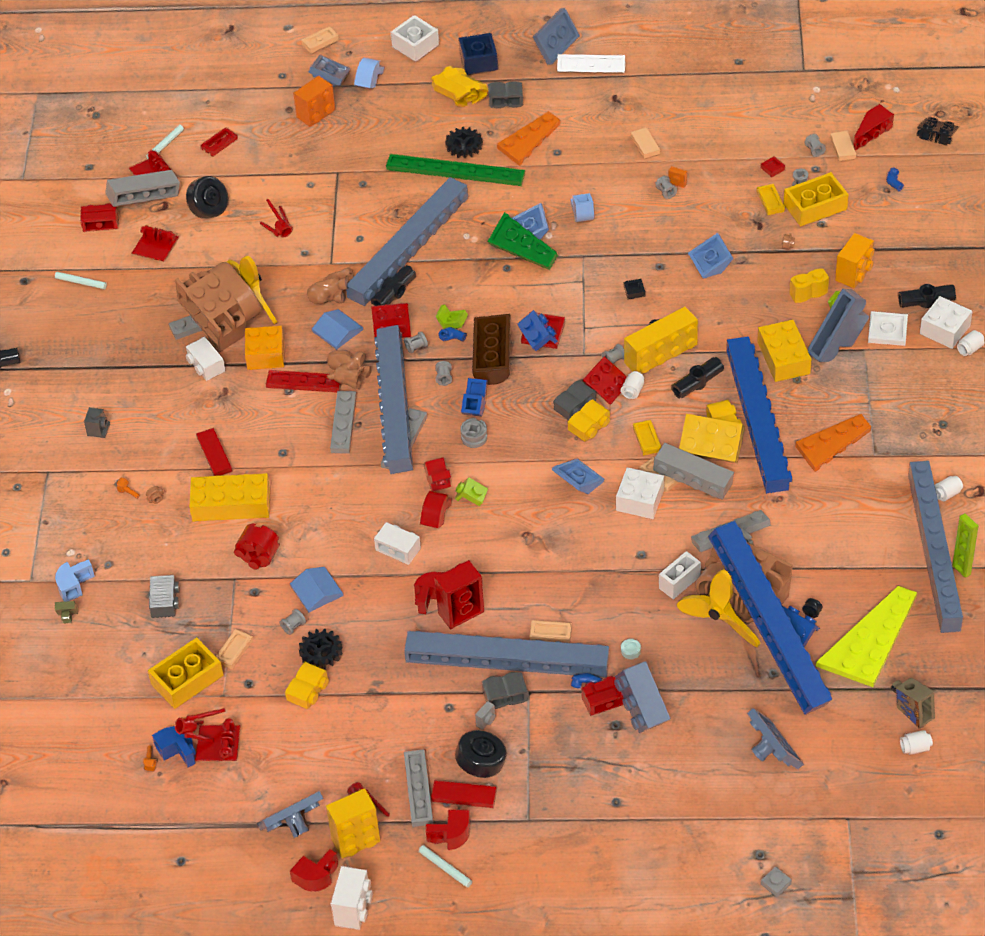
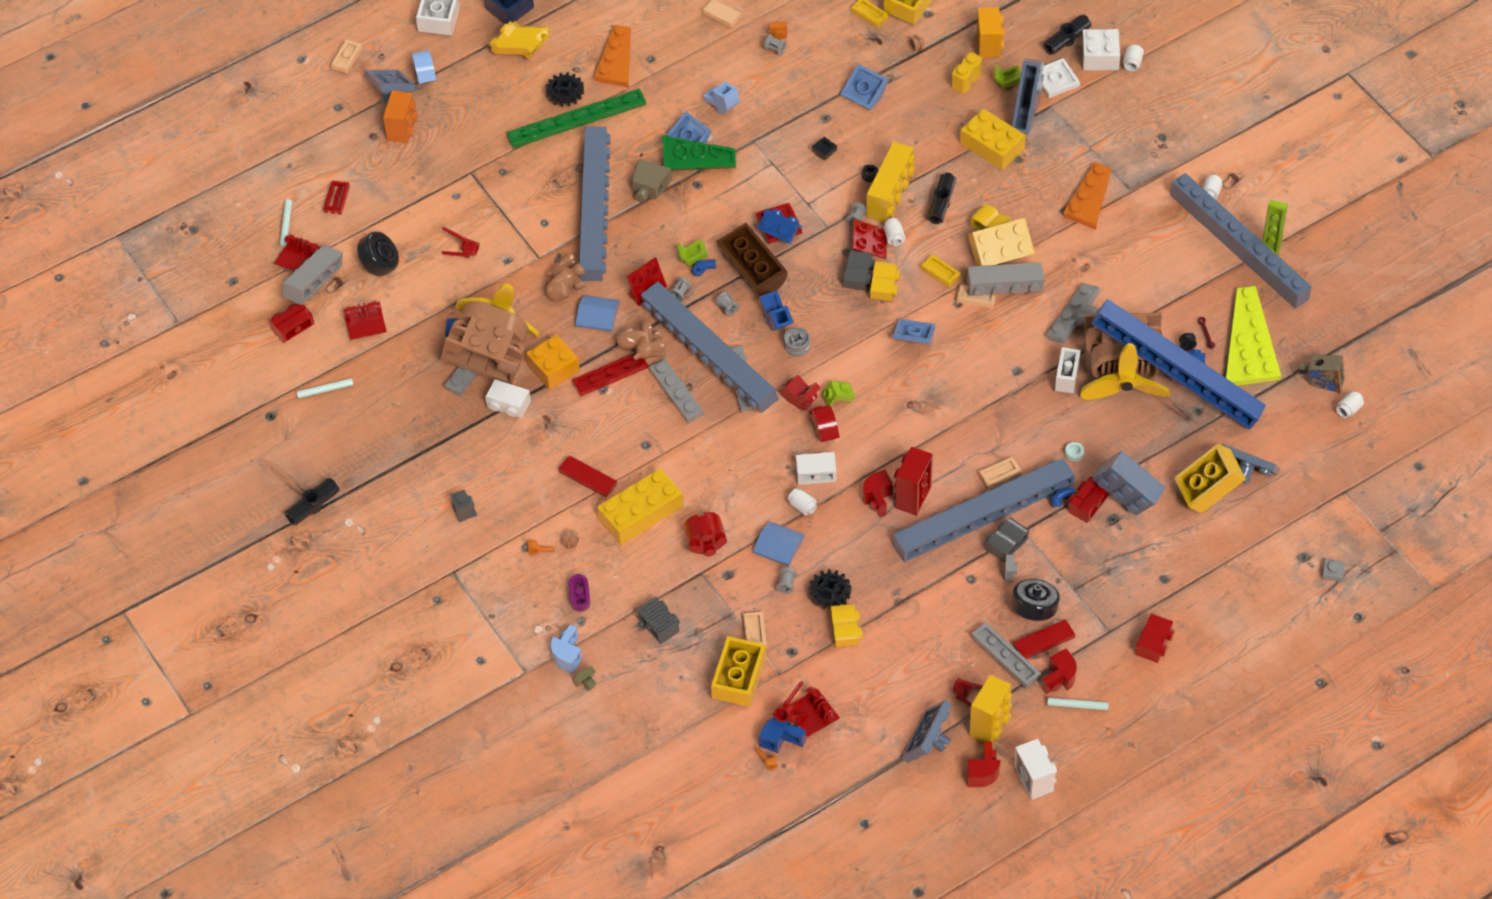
camera: 35 degrees left, 5 degrees up
(121, 543) = (579, 594): none -> magenta plate
(362, 564) = (802, 501): none -> white brick
(394, 286) = (617, 251): black piece -> none
(468, 245) = (650, 180): none -> dark tan torso
(505, 94) = (564, 27): dark grey brick -> none
(558, 847) = (1154, 638): none -> red brick
(640, 493) = (978, 320): white brick -> none
(720, 733) = (1209, 478): none -> yellow brick
(758, 415) = (1015, 204): blue brick -> none
(843, 598) = (1202, 321): none -> dark red hinge

